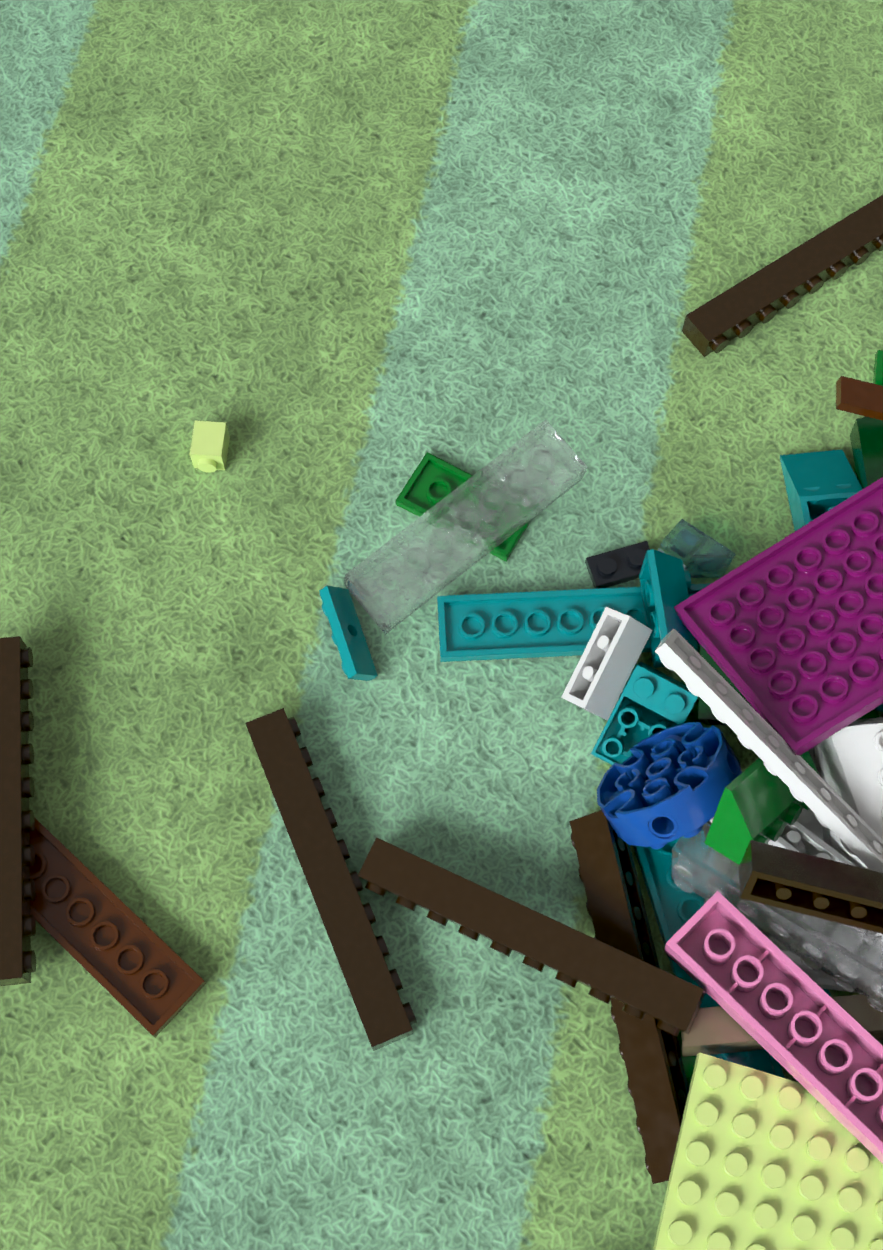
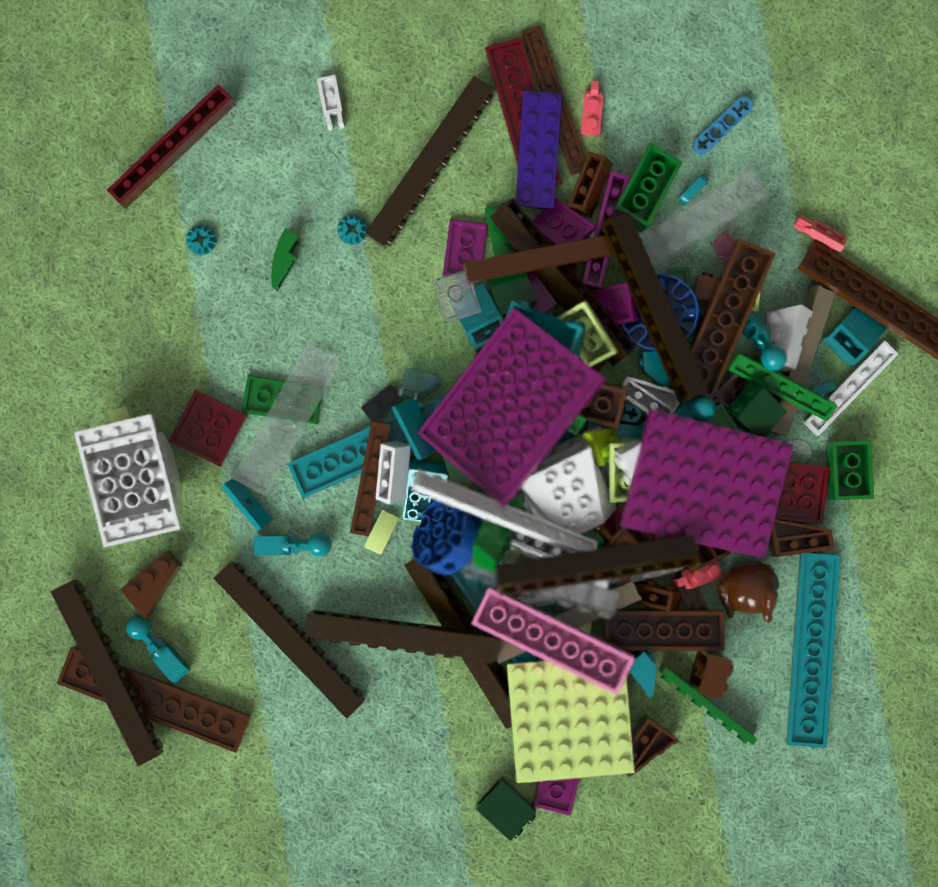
camera: 20 degrees left, 20 degrees up
(107, 820) = (162, 654): none -> teal beam
(142, 697) = (150, 584): none -> reddish brown wedge
(187, 515) = (131, 479): none -> white wedge
(334, 504) = (208, 428): none -> dark red plate
(379, 718) = (317, 545): none -> teal beam
(445, 122) = (171, 146): none -> dark red brick
(445, 259) = (208, 243): none -> teal gear
(548, 759) = (381, 532): none -> yellowish green slope
(549, 313) = (283, 258): none -> green slope
(550, 682) = (367, 487): none -> reddish brown plate
(662, 323) = (352, 238): none -> teal gear
(694, 143) = (330, 100): none -> white hinge
(799, 445) = (456, 296): none -> clear slope
(814, 402) = (464, 244): none -> magenta tile

